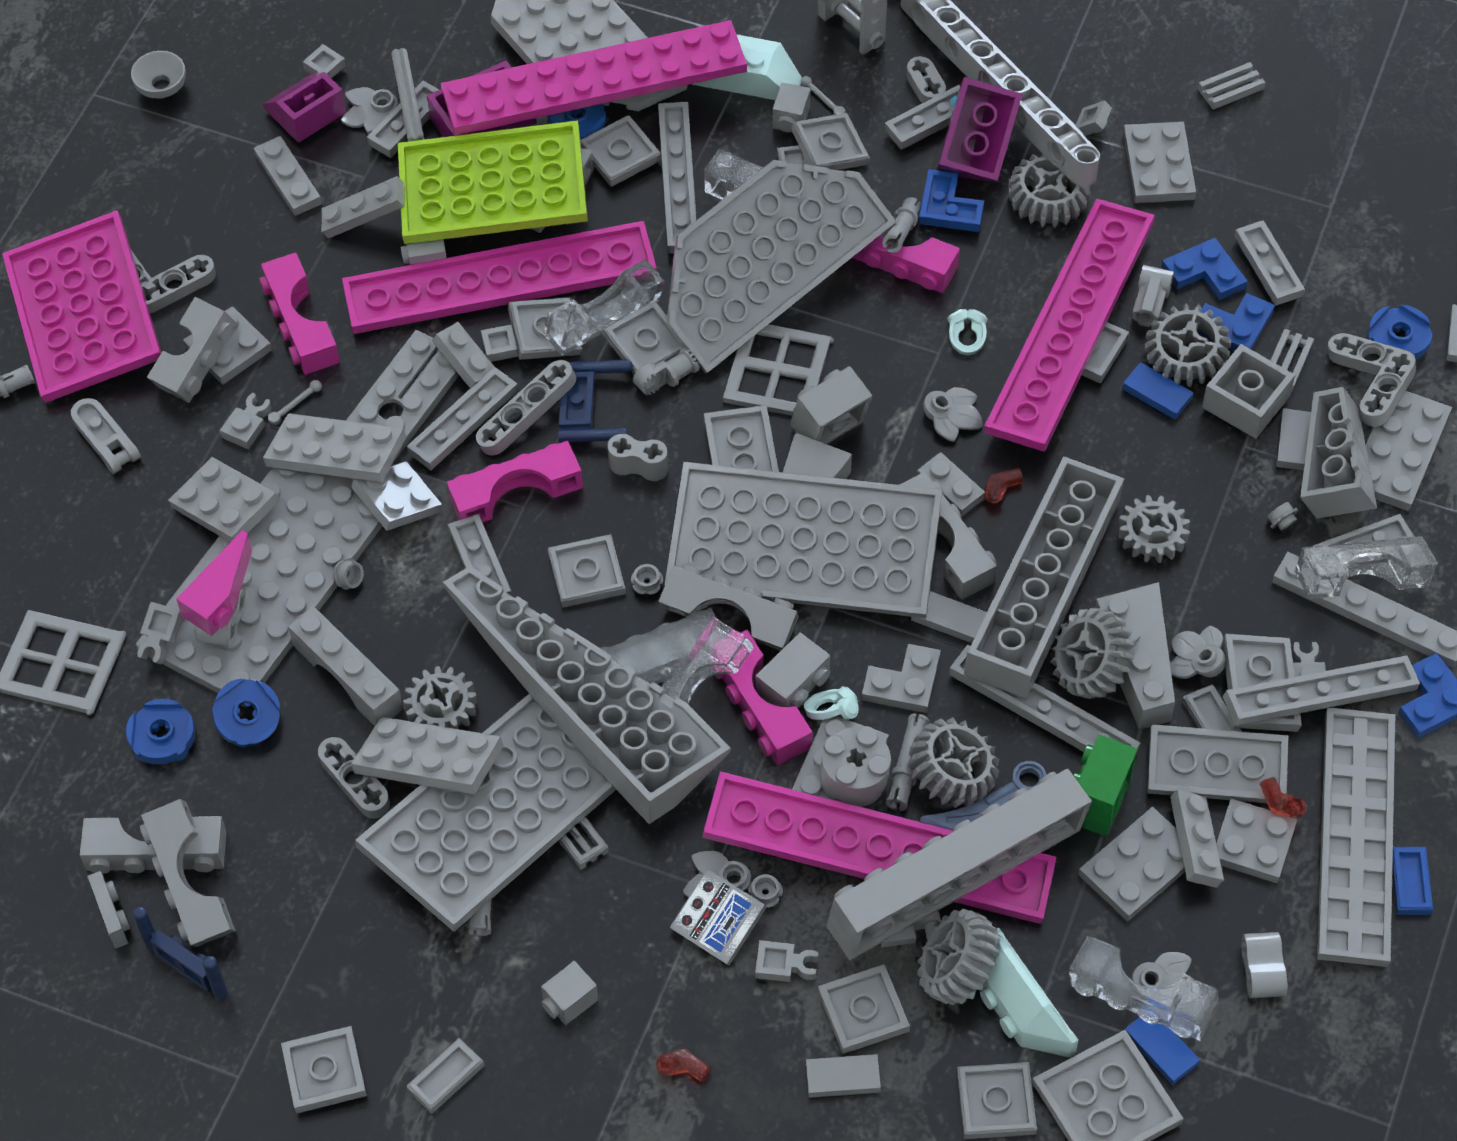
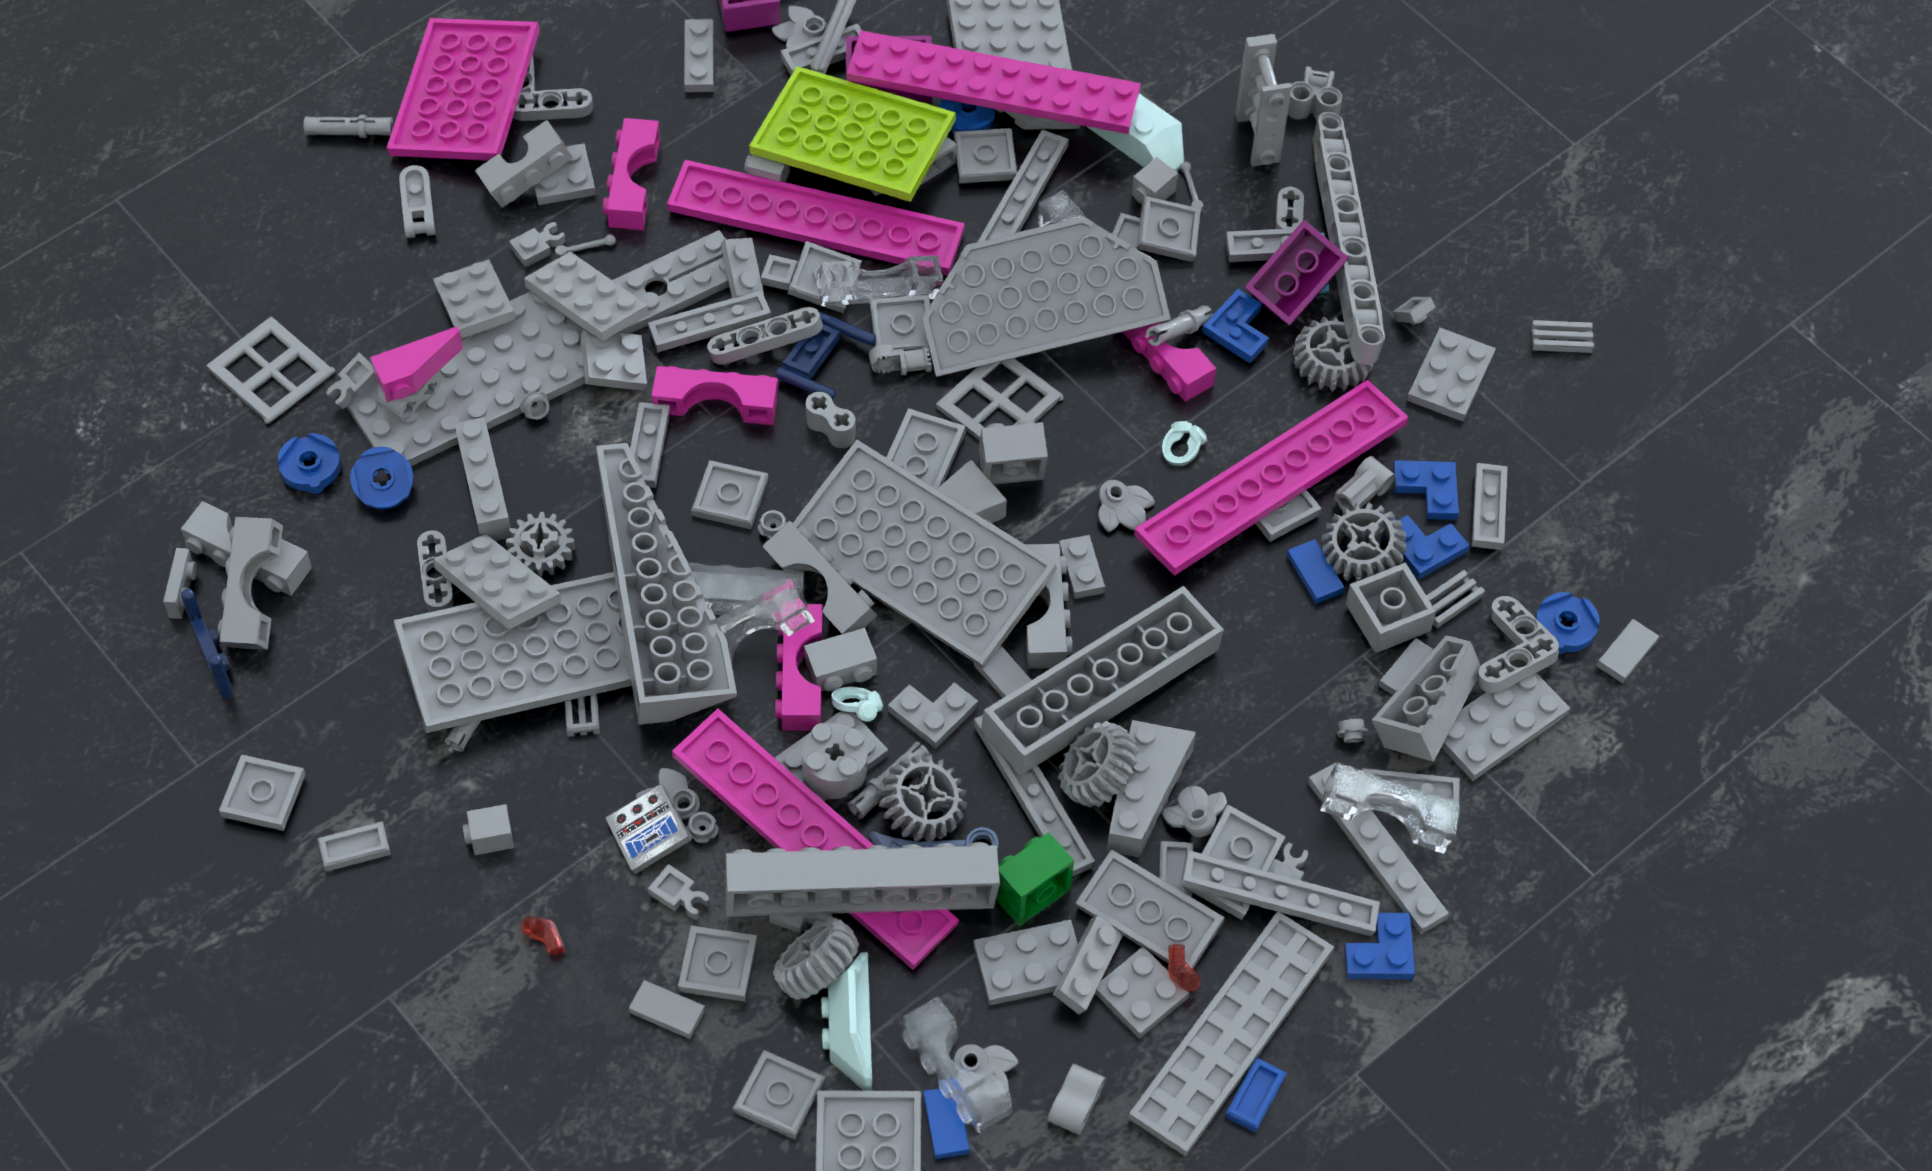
camera: 25 degrees right, 0 degrees up
(362, 207) = (737, 107): light grey plate -> none
(998, 484) = (1123, 585): clear red arm -> none
(1153, 528) = (1227, 689): light grey gear -> none

